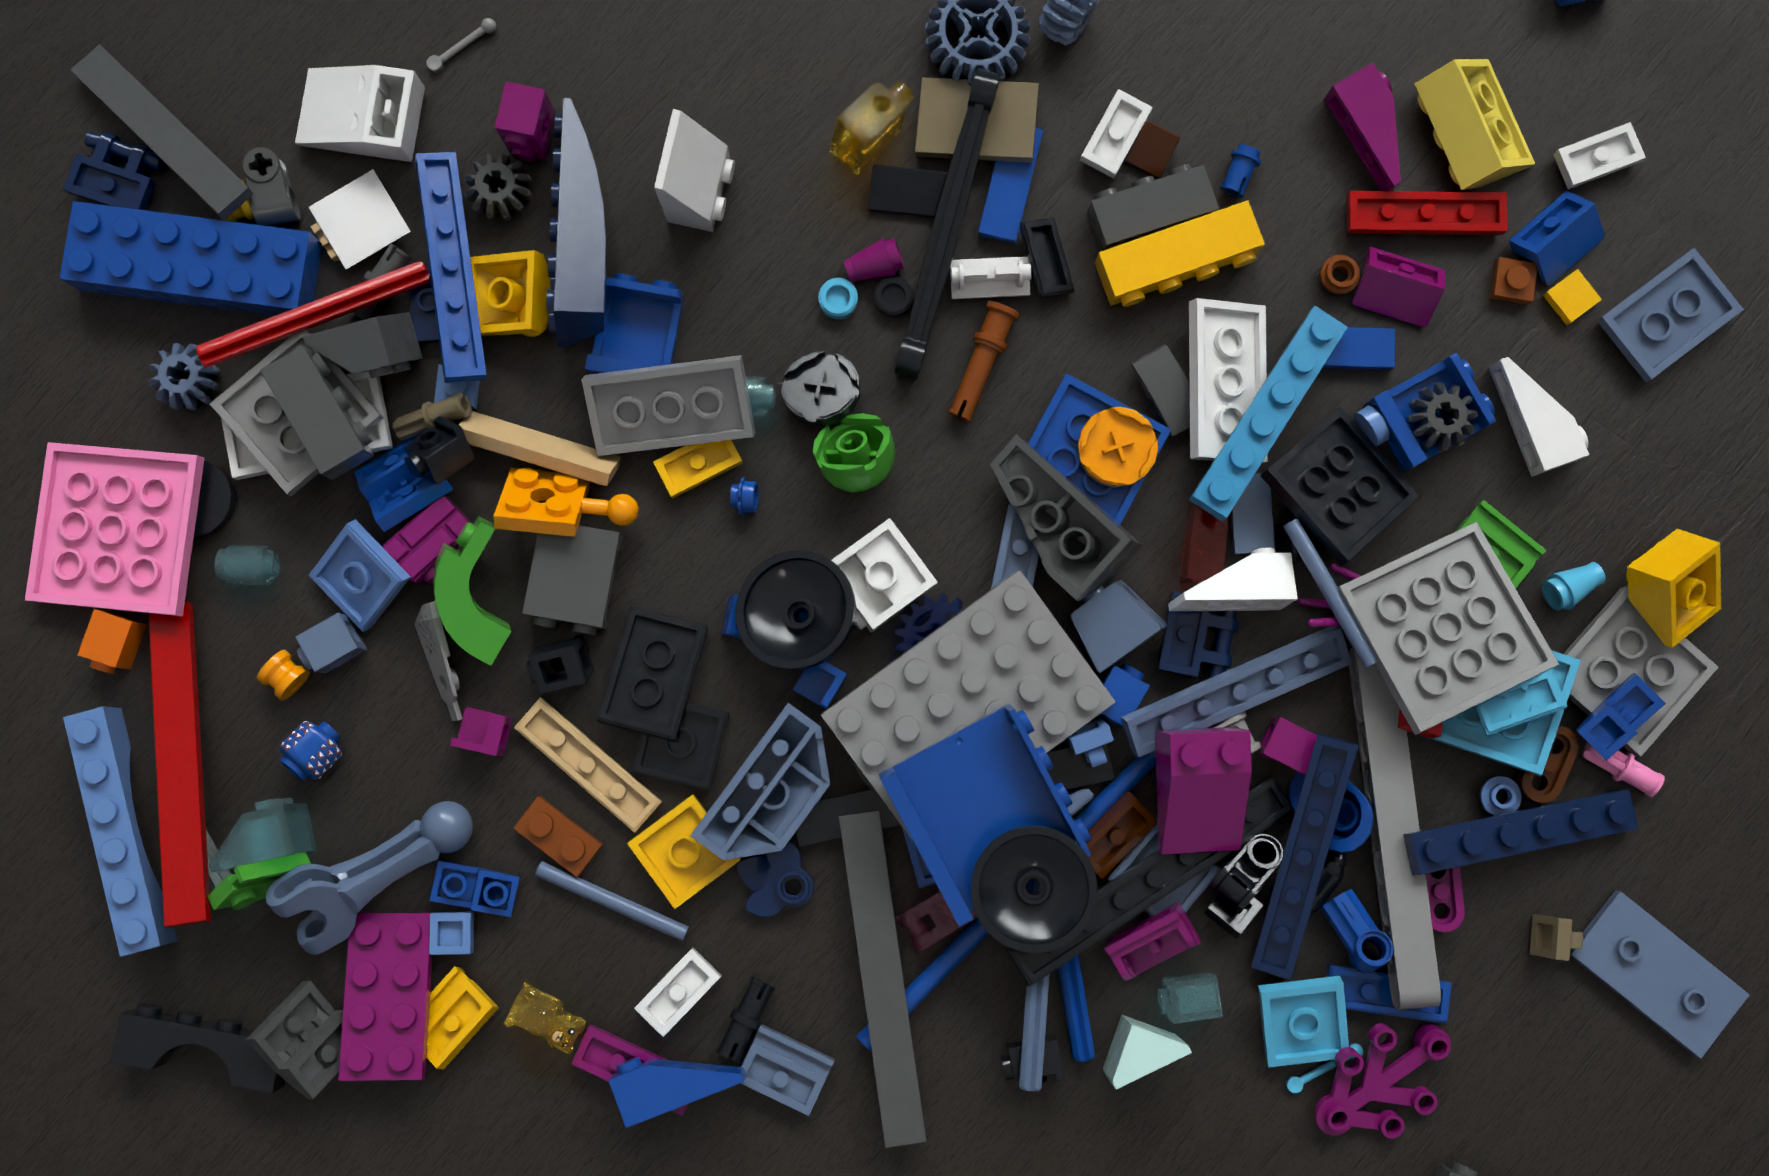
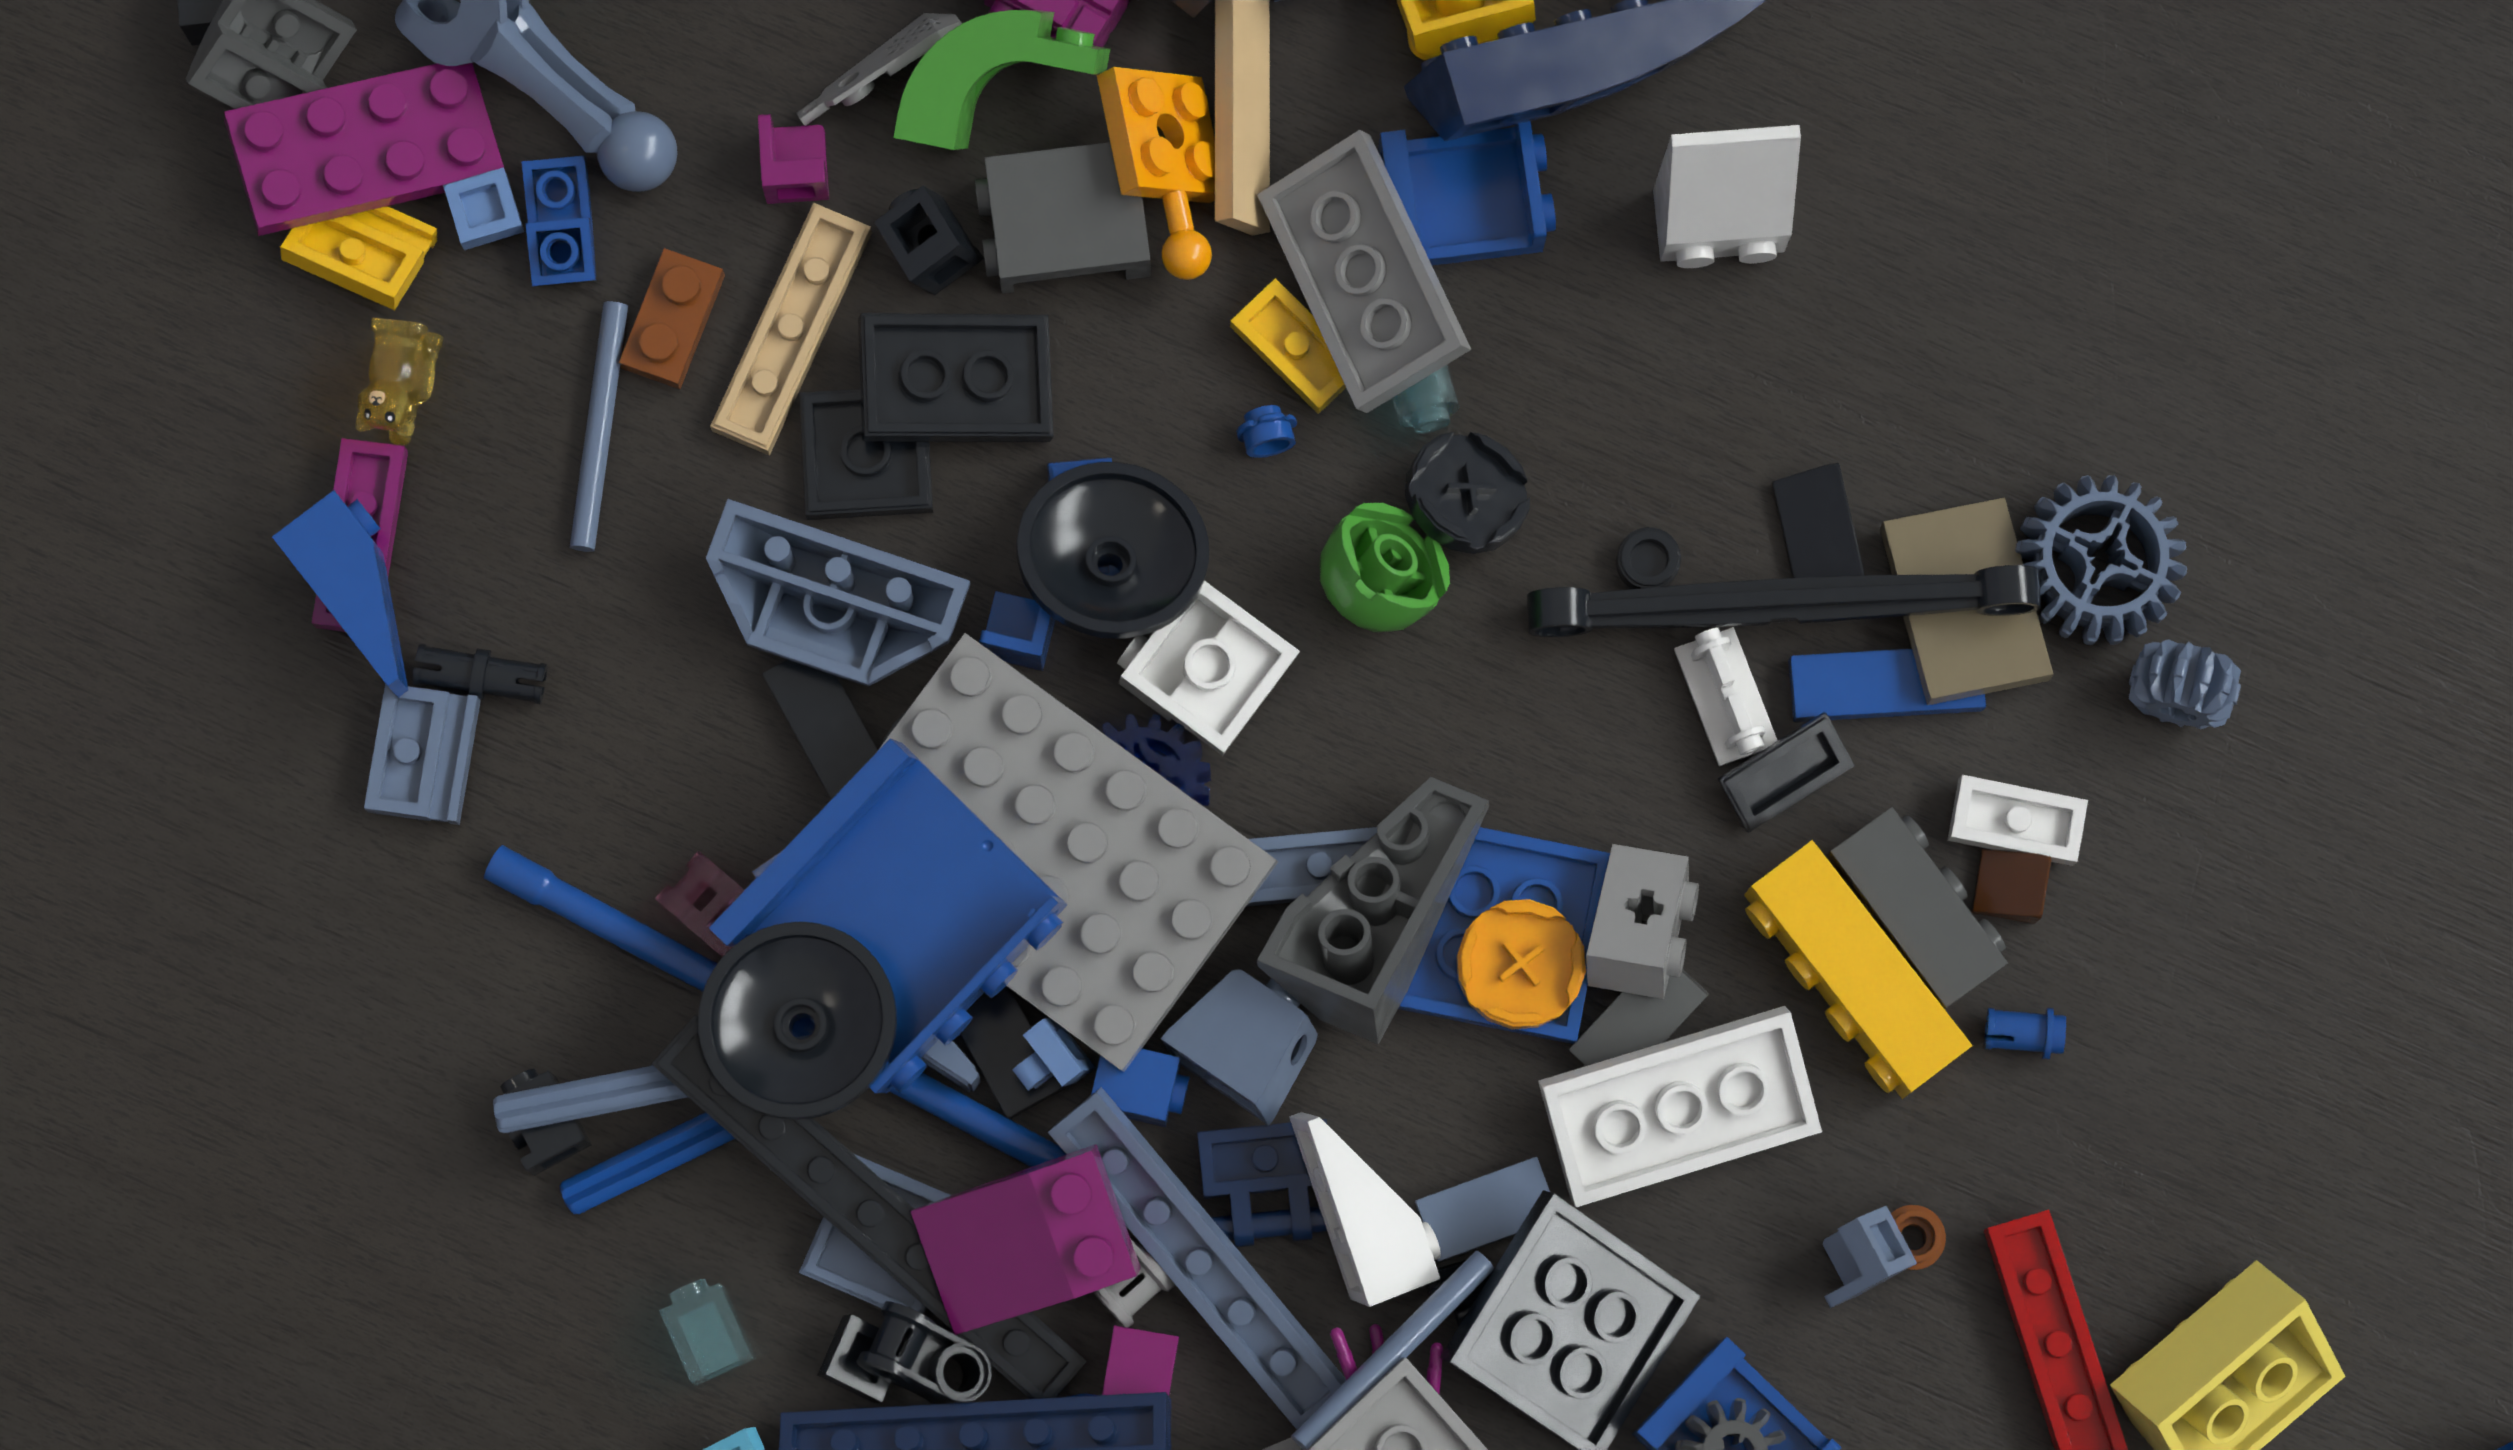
camera: 70 degrees right, 5 degrees down
(674, 857) = (685, 496): yellow plate -> none
(677, 992) = (492, 561): white plate -> none
(768, 880) = (700, 646): dark blue plate -> none
(838, 298) = (1618, 478): medium azure tile -> none
(869, 125) = (1900, 439): clear yellow torso -> none
(875, 261) = (1693, 515): magenta cone -> none
(882, 979) = (600, 852): dark grey tile -> none
(988, 343) = (1621, 724): dark orange pin -> none
(1118, 833) = (916, 1139): reddish brown hinge -> none
(1130, 384) = (1635, 889): none -> light grey brick
(1140, 1050) = (608, 1268): light aqua slope -> none
(1151, 941) = (772, 1246): magenta hinge -> none
(1203, 545) = (1421, 1146): clear red panel -> none
(1268, 413) = (1648, 1179): dark azure plate -> none
(1349, 302) = (1866, 1254): none -> sand blue panel
(1364, 350) = (1796, 1283): blue tile -> none
(1367, 116) = (2185, 1199): magenta slope -> none
(1372, 425) = (1685, 1355): medium blue tile -> none
(1399, 287) = (1925, 1337): magenta panel -> none

